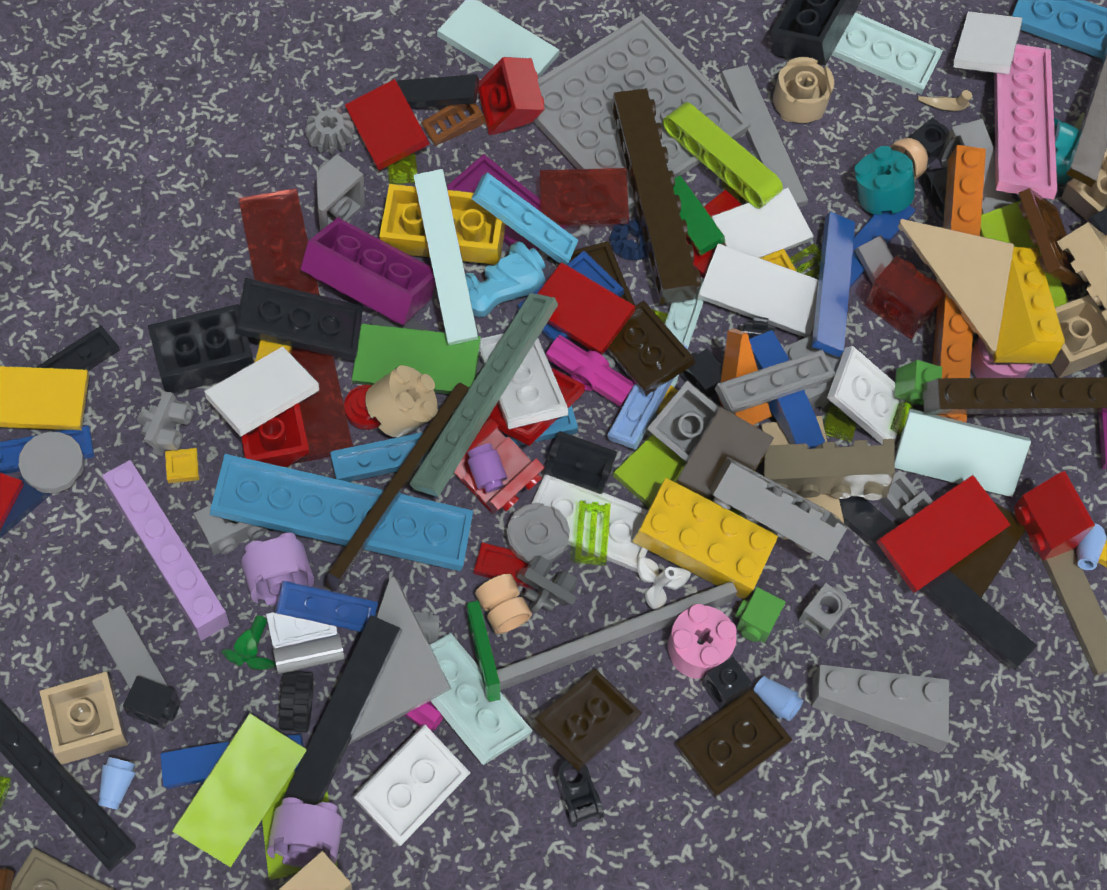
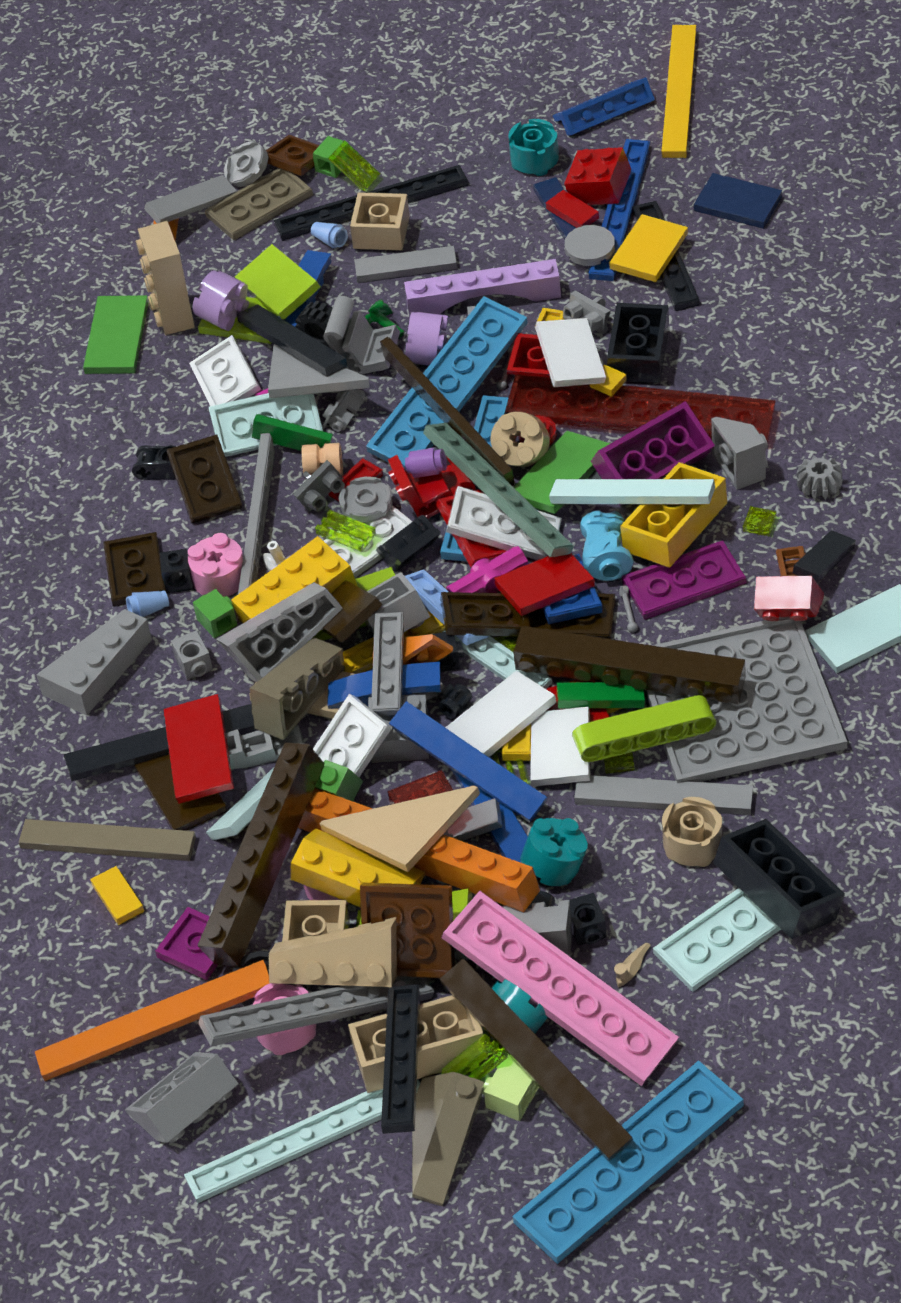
camera: 130 degrees right, 15 degrees down
(151, 702) = (368, 253): black brick -> none
(299, 319) = (630, 395): black tile -> none
(324, 606) = (373, 361): blue tile -> none
(387, 124) = (805, 514): red tile -> none
(524, 219) = (641, 556): medium azure tile -> none
(585, 196) = (660, 618): clear red tile -> none
(915, 152) = (571, 883): light nougat hair -> none
(988, 42) = (675, 1018): white tile -> none
(1053, 516) = (160, 828): red slope -> none
(1091, 548) = (128, 861): light blue cone -> none

